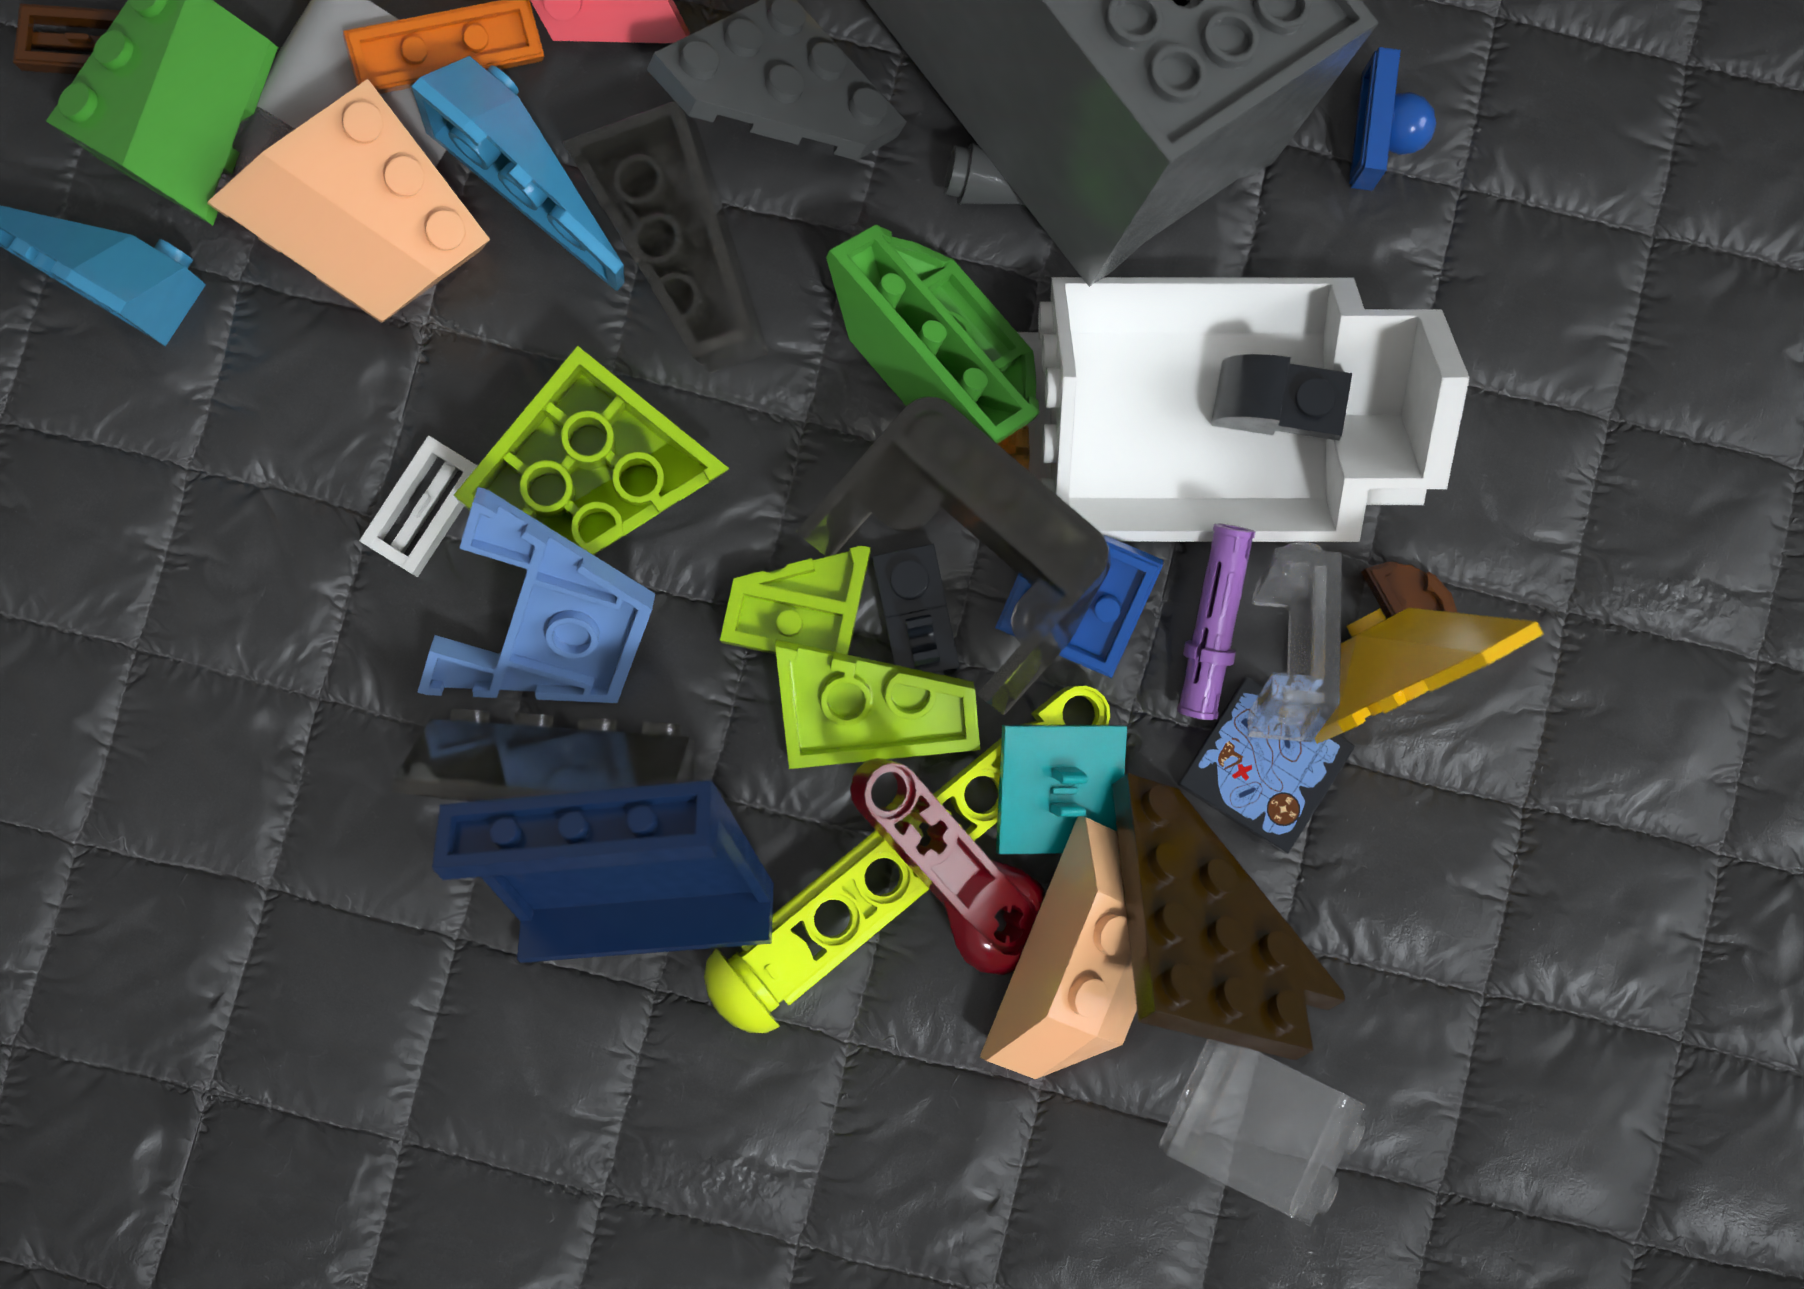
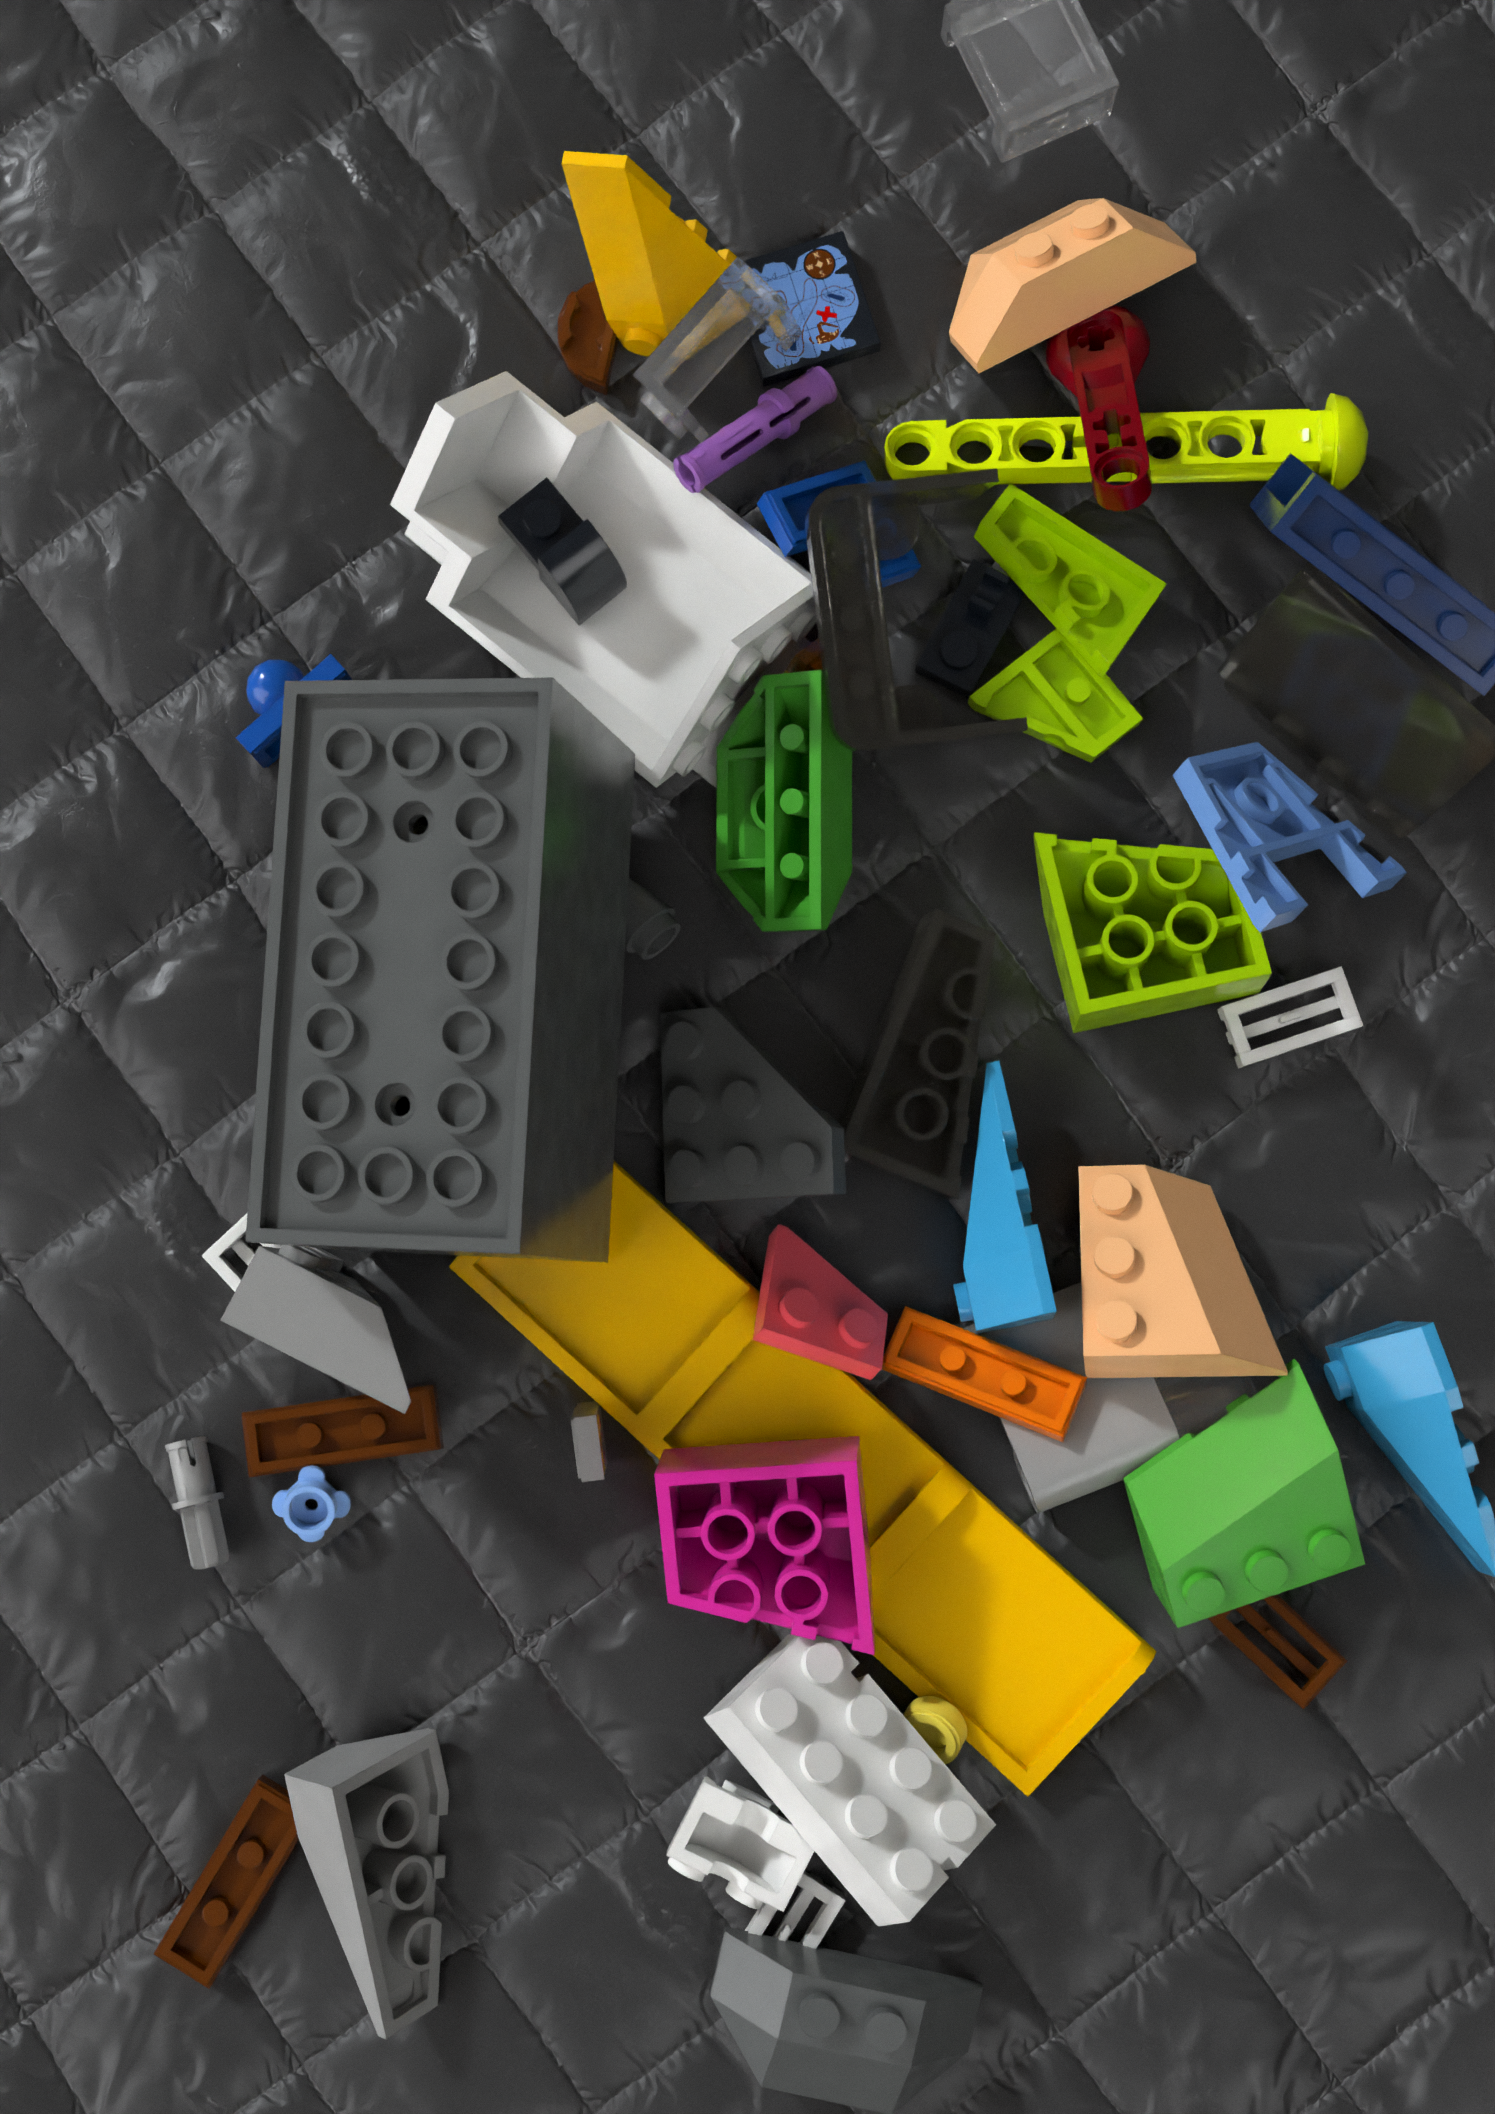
camera: 135 degrees left, 0 degrees up
(1052, 779) = (974, 409): teal piece -> none
(1205, 937) = (956, 210): dark brown wing -> none

